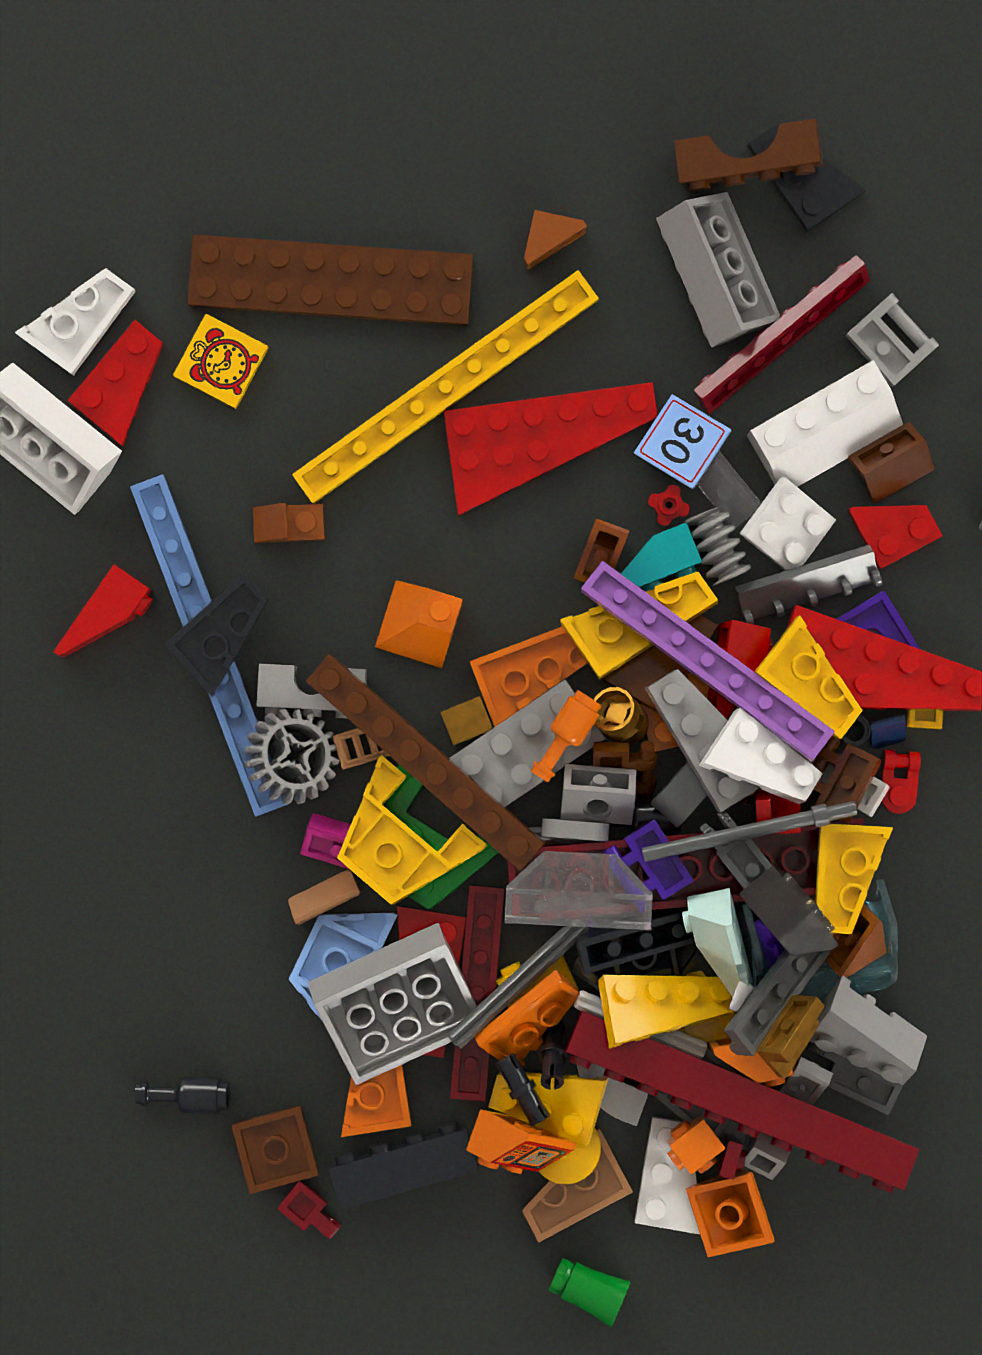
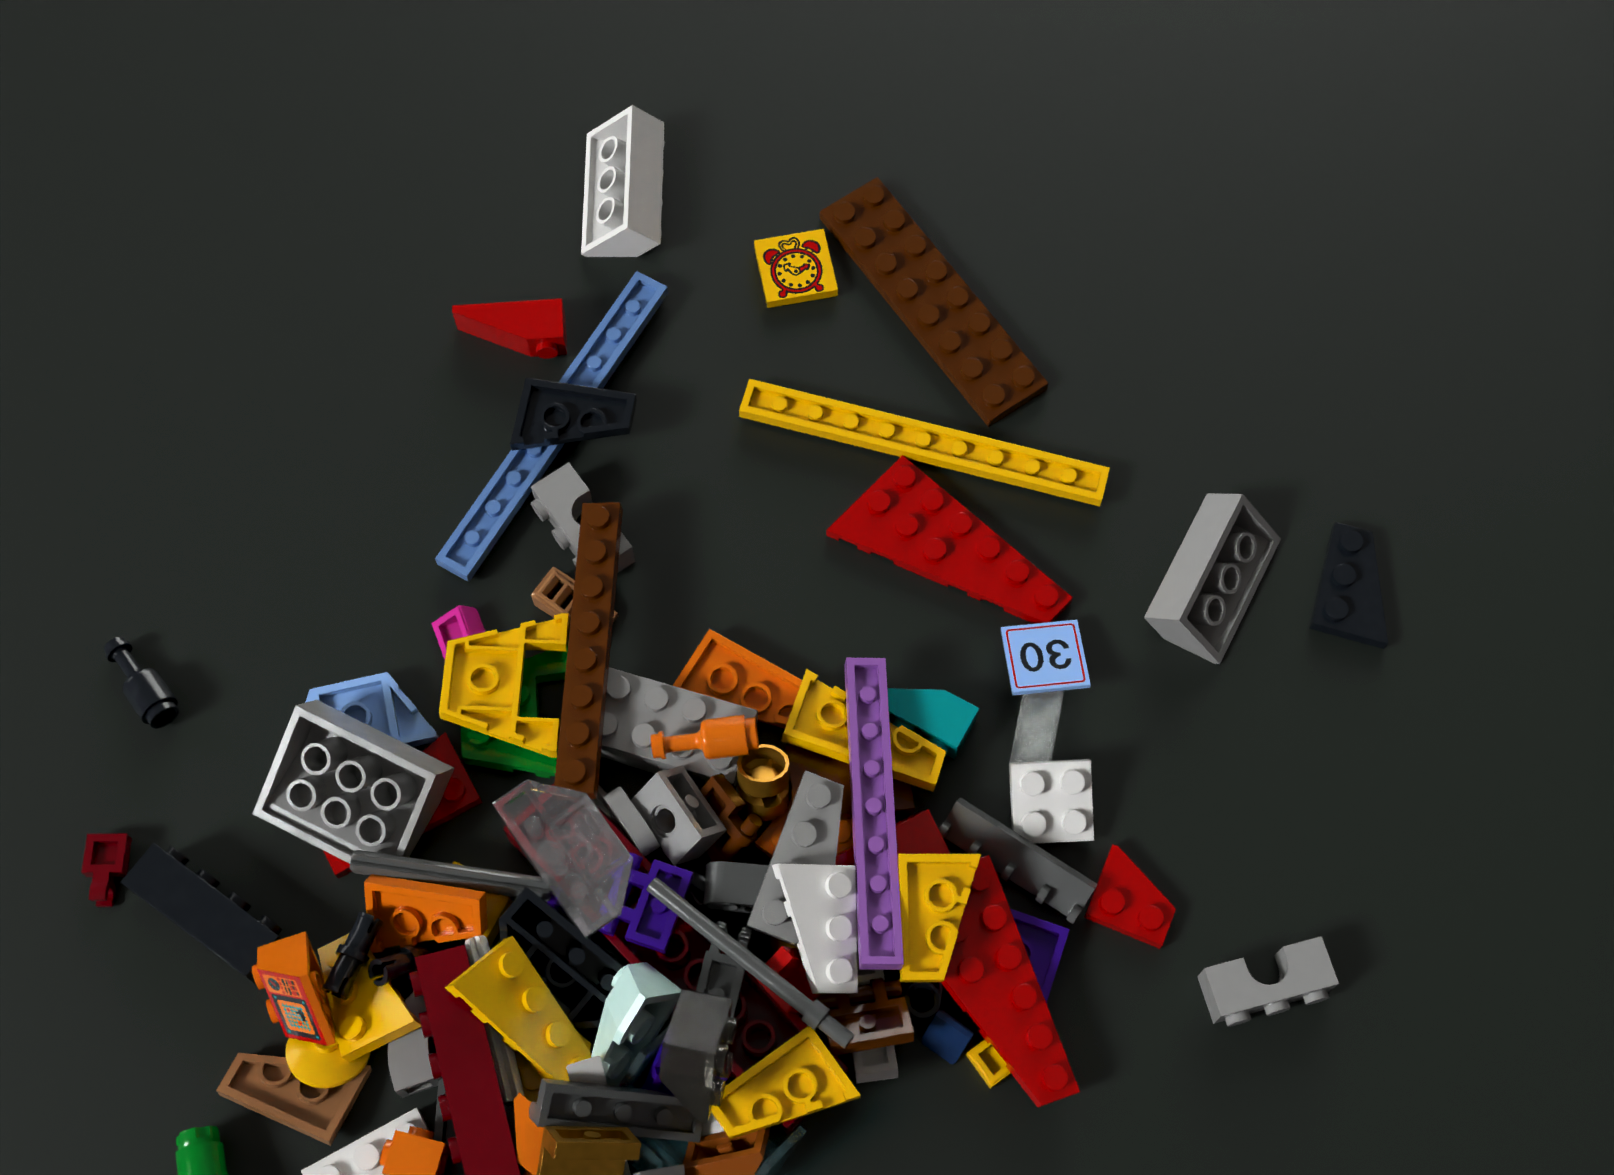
camera: 50 degrees right, 20 degrees down
(78, 322) = (733, 149): white wing -> none
(118, 381) = (712, 208): red wing -> none
(275, 1149) = (143, 794): reddish brown plate -> none
(288, 523) = (706, 408): dark orange slope -> none
(299, 767) = (495, 537): light grey gear -> none
(324, 896) = (405, 669): medium nougat slope -> none
(377, 1104) = (251, 849): orange wing -> none
(419, 623) = (710, 571): orange slope -> none
(466, 720) = (655, 660): pearl gold panel -> none
(480, 974) = (441, 842): dark red plate -> none
(549, 235) = (1115, 427): dark orange slope -> none
(603, 544) = (904, 657): dark orange slope -> none
(659, 501) = (986, 701): red plate -> none
(718, 545) = (982, 753): light grey piece -> none
(781, 335) = (1208, 669): dark red plate -> none
(794, 148) = (1364, 548): reddish brown arch -> none
(827, 426) = (1167, 767): white slope -> none
(880, 343) = (1275, 761): light grey plate -> none
(892, 461) = (1186, 851): reddish brown panel -> none
(902, 792) = (900, 1097): red plate -> none

